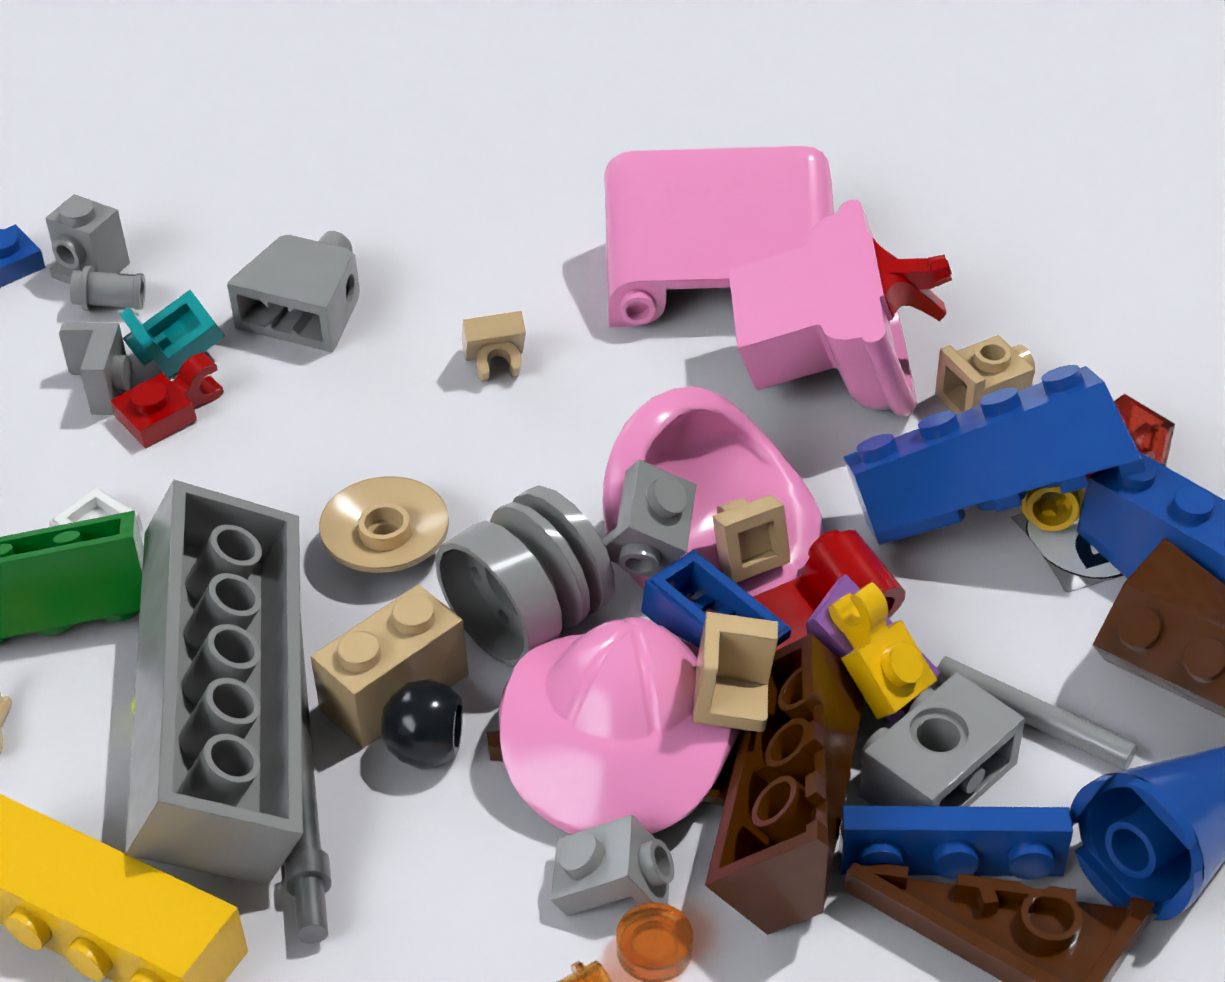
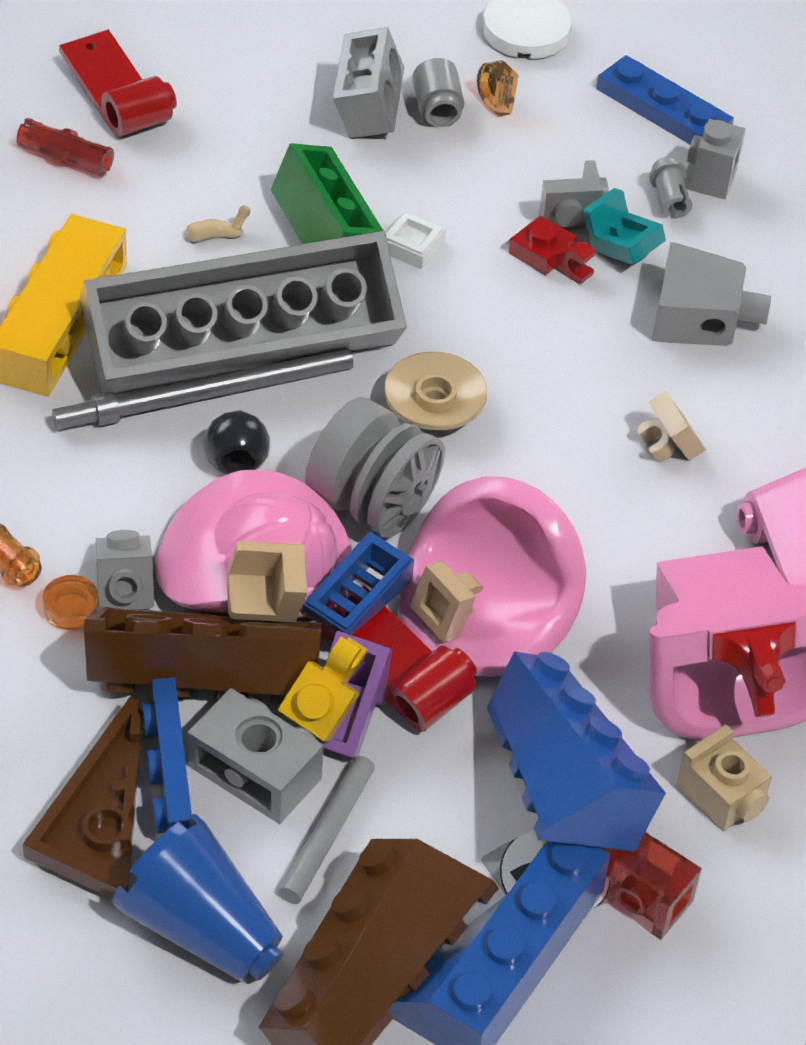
camera: 75 degrees right, 5 degrees up
(396, 645) = (287, 406): tan brick -> none
(651, 520) = (427, 519): light grey bracket -> none

